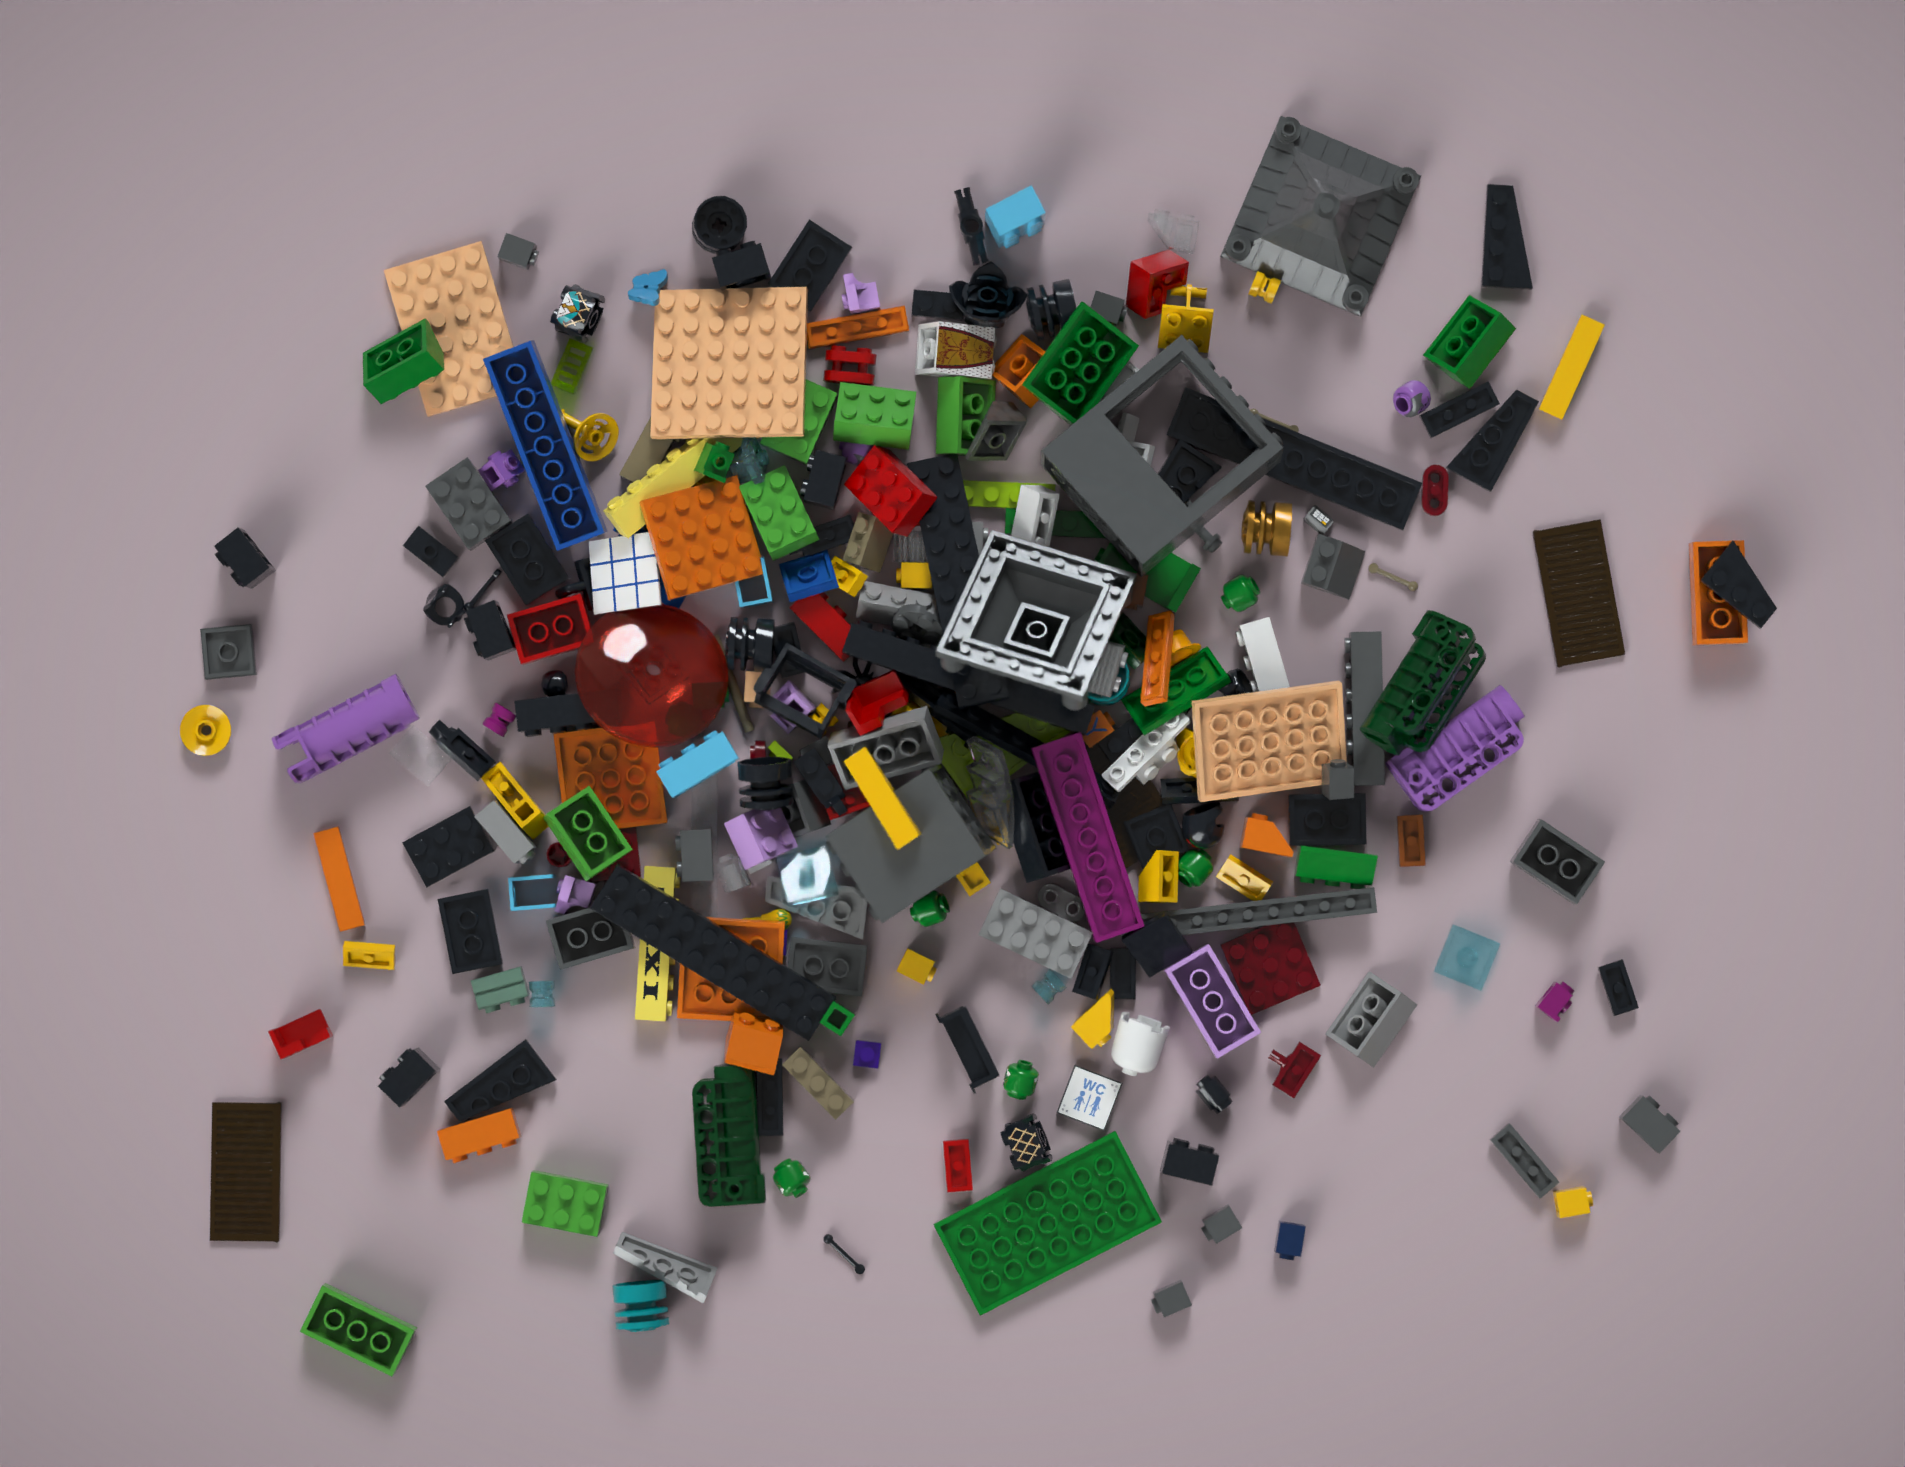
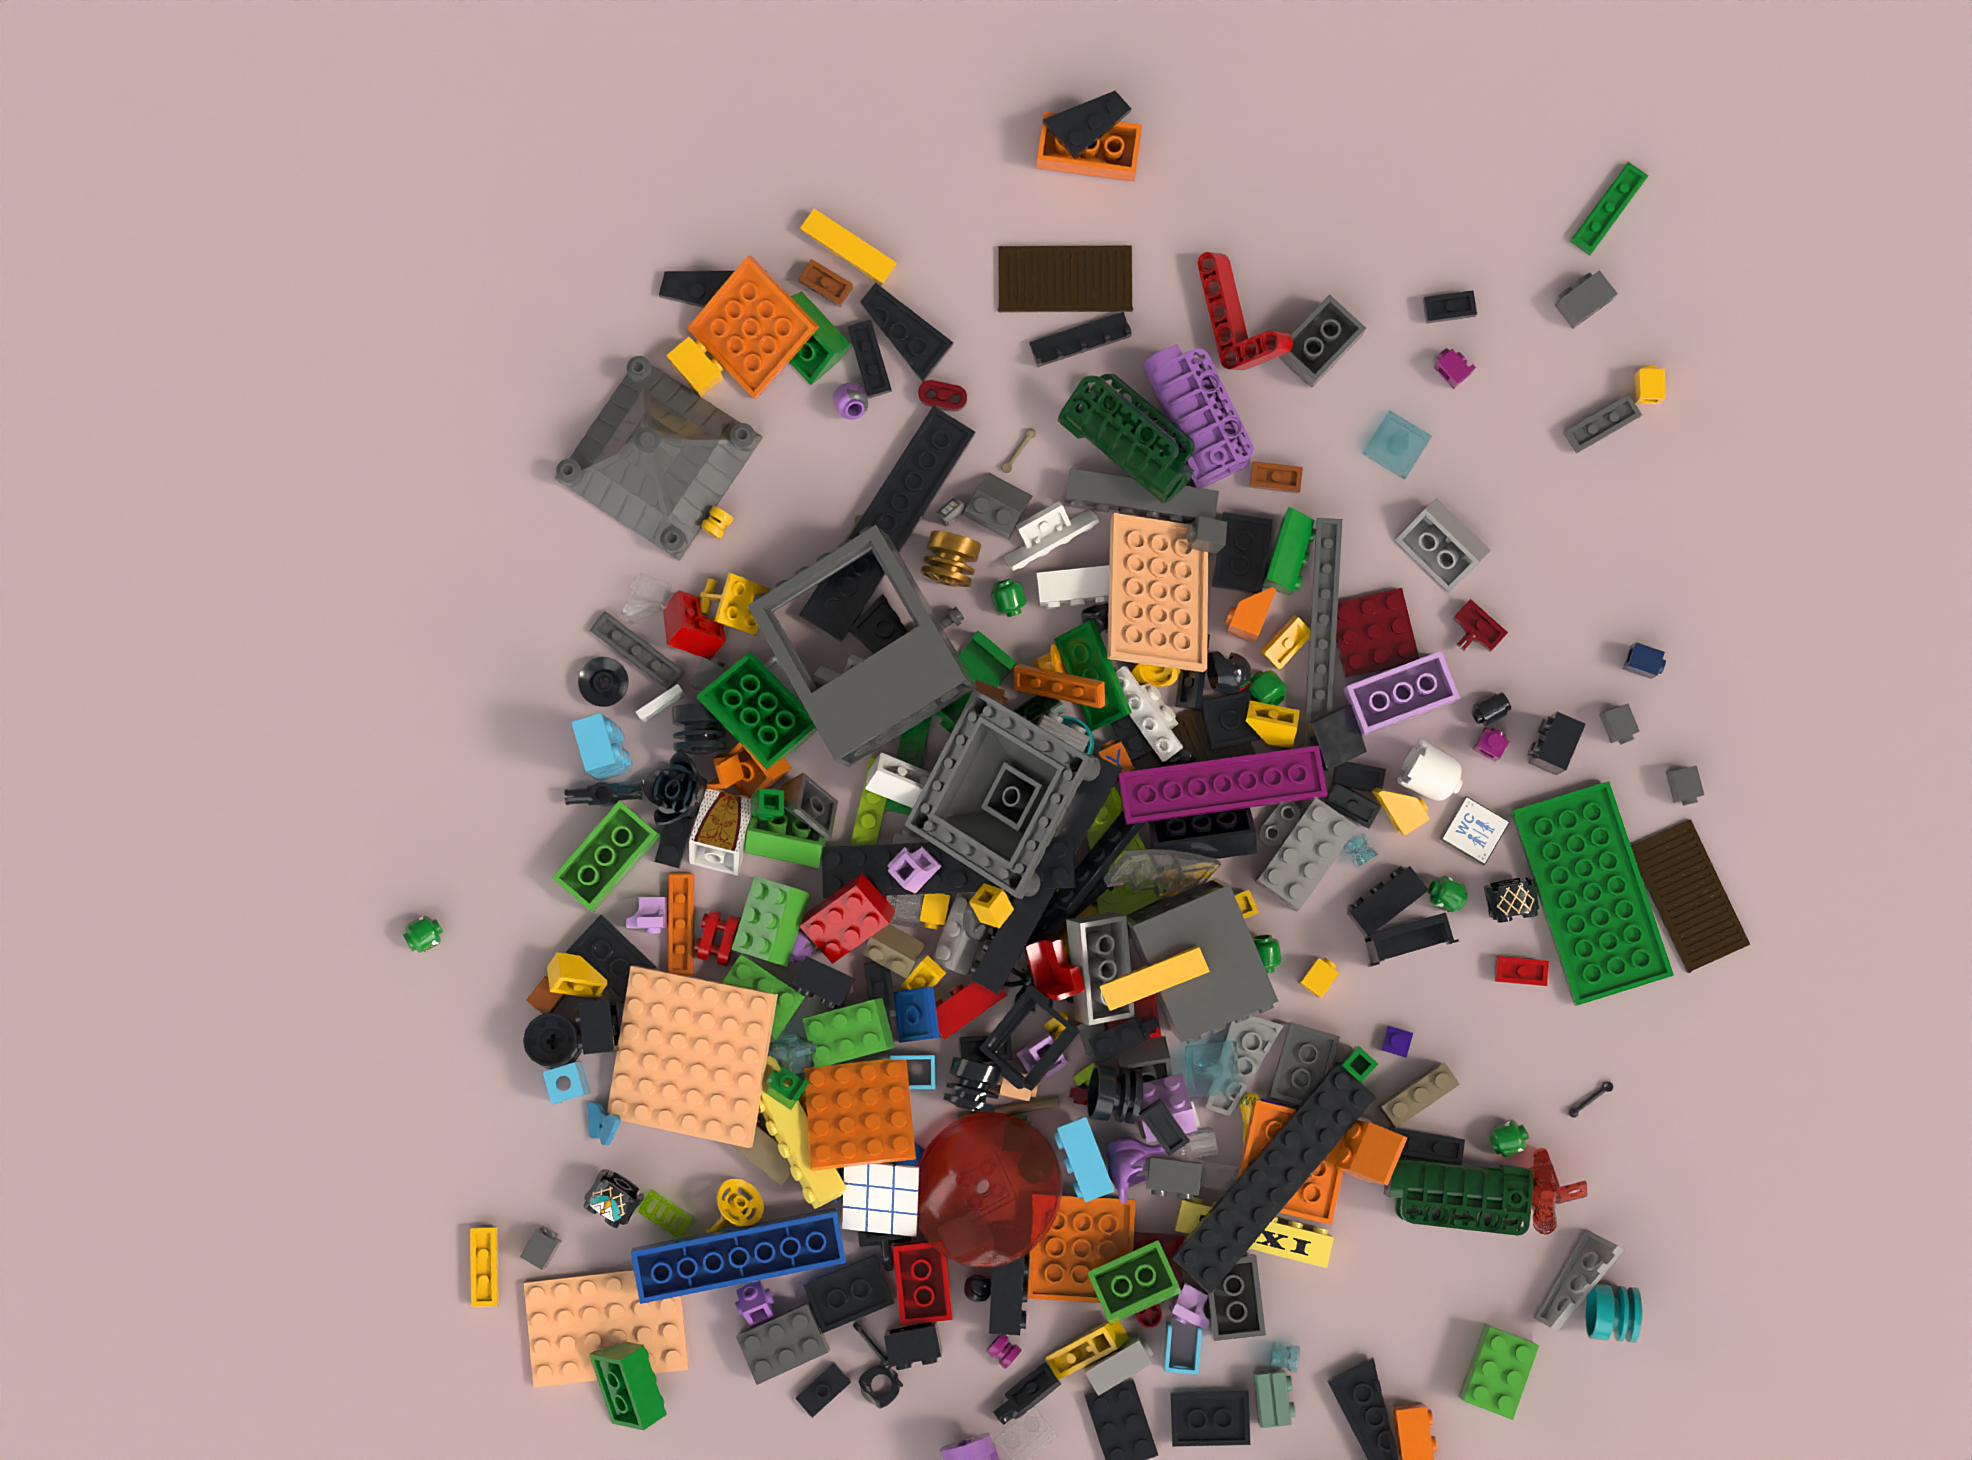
camera: 75 degrees left, 5 degrees down
(490, 199) = (484, 1266): none -> yellow plate
(684, 257) = (578, 1079): none -> medium azure piece
(704, 807) = (1127, 1160): none -> medium lavender piece
(742, 835) = (1164, 1127): none -> black tile
(743, 1222) = (1548, 1192): none -> clear red piece
(764, 210) = (543, 999): none -> dark orange brick
(786, 233) = (574, 976): none -> yellow slope
(801, 75) = (423, 934): none -> green head
(910, 241) = (606, 856): none -> bright green brick
(926, 629) = (991, 905): none -> yellow brick
(949, 546) = (913, 869): none -> lavender brick
(988, 391) = (767, 804): none -> green brick
(1004, 1020) = (1386, 900): none -> black brick
(1015, 346) = (728, 771): none -> orange panel
(1062, 1320) = (1689, 896): none -> dark brown window
(1072, 266) = (660, 703): none -> white tile
(1085, 191) = (592, 675): none -> black dish
(1121, 232) = (637, 651): none -> dark grey tile
(1179, 1099) = (1491, 743): none -> magenta brick
(1314, 621) = (1046, 531): none -> white bracket
(1419, 235) = (695, 366): none -> yellow brick
(1468, 286) = (752, 327): none -> orange plate
(1518, 619) = (1080, 339): none -> black hinge
(1530, 351) = (826, 282): none -> dark orange plate
(1563, 764) = (1228, 319): none -> red beam
(1750, 1133) = (1609, 208): none -> green tile

